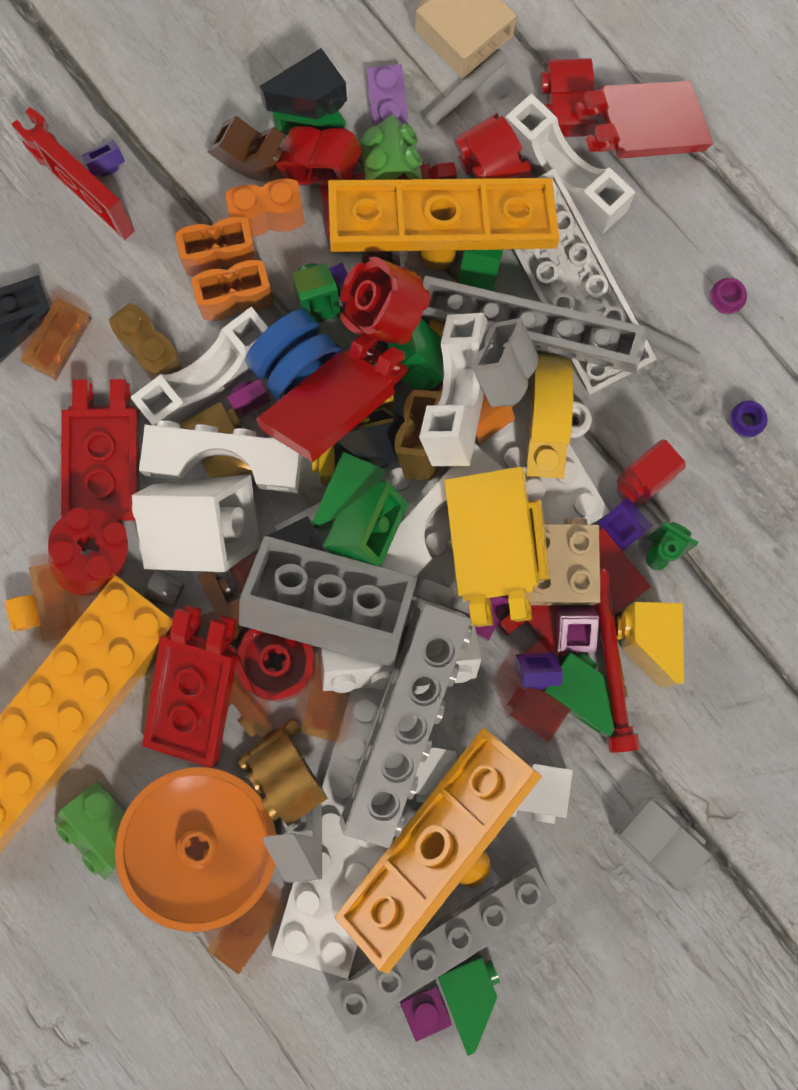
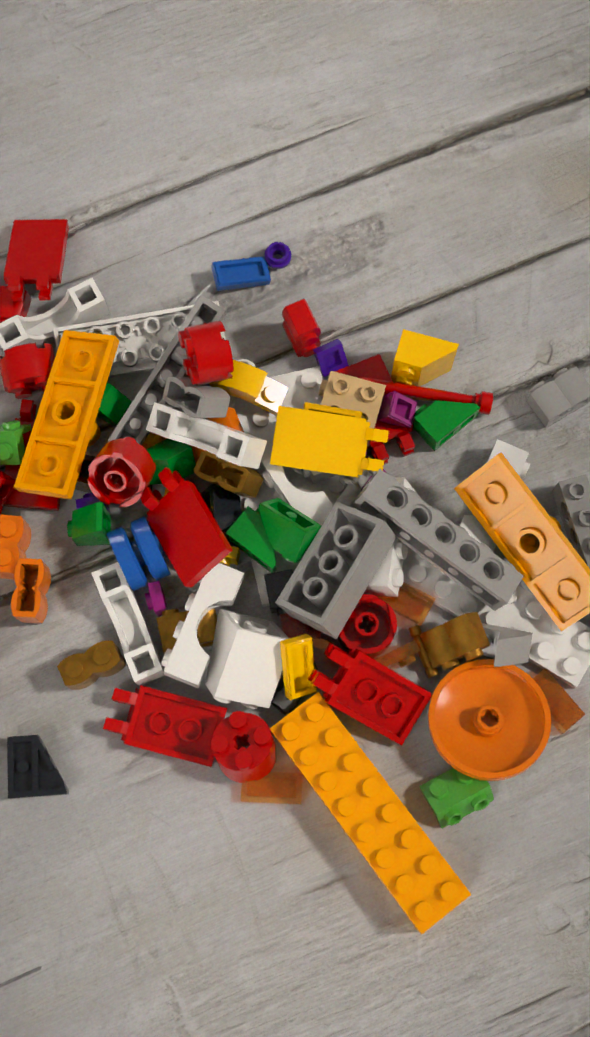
camera: 70 degrees left, 5 degrees down
(22, 613) = (275, 814): light orange hose -> none
(56, 339) = (63, 736): clear orange plate -> none
(199, 586) = (297, 666): none -> yellow tile
(226, 292) = (68, 595): orange brick -> none
(536, 712) = (449, 454): clear red brick -> none
(538, 670) = (422, 441): dark purple plate -> none
(562, 353) = (207, 353): none -> red brick
(669, 544) = (356, 331): green hinge -> none
(707, 378) = (240, 273): none -> blue tile
(728, 296) = (184, 242): magenta plate -> none

